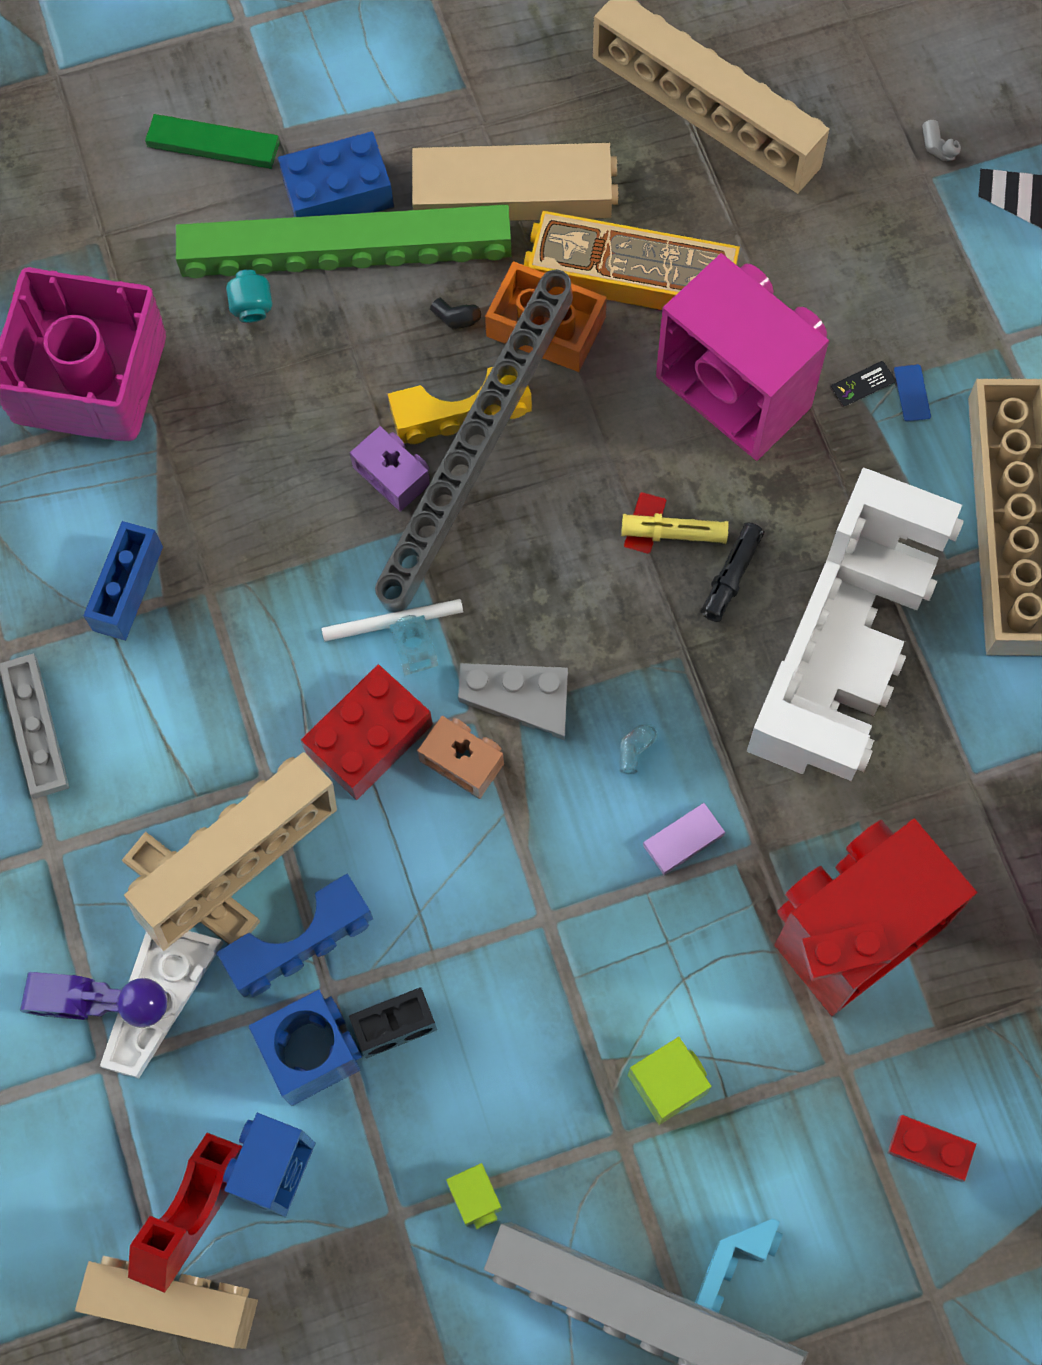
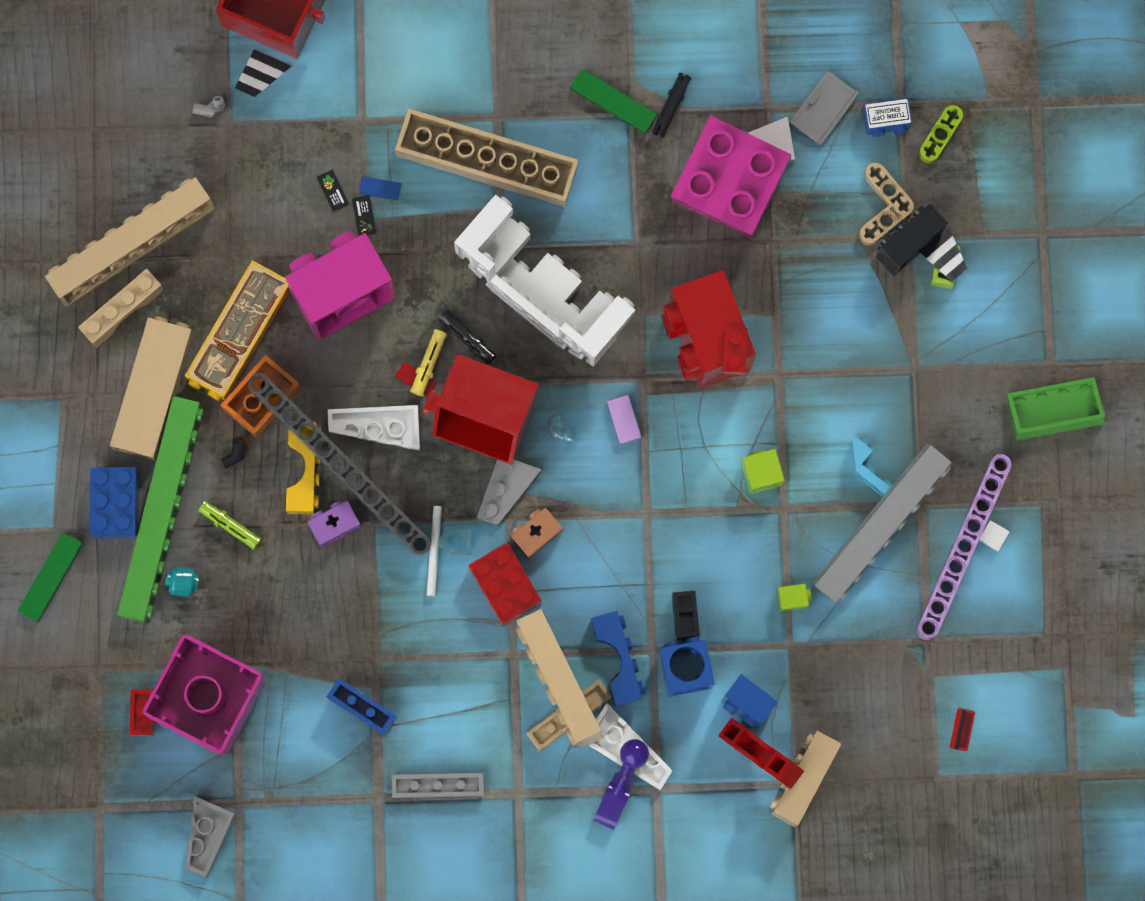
camera: 80 degrees left, 10 degrees up
(353, 324) = (221, 519): none -> lime pin
(559, 492) = (382, 425): none -> white wing
(623, 607) = (482, 409): none -> red piece
(643, 126) = (133, 296): none -> tan arch
(884, 332) = (332, 190): none -> black sticker
(932, 1148) = (838, 341): red plate -> none

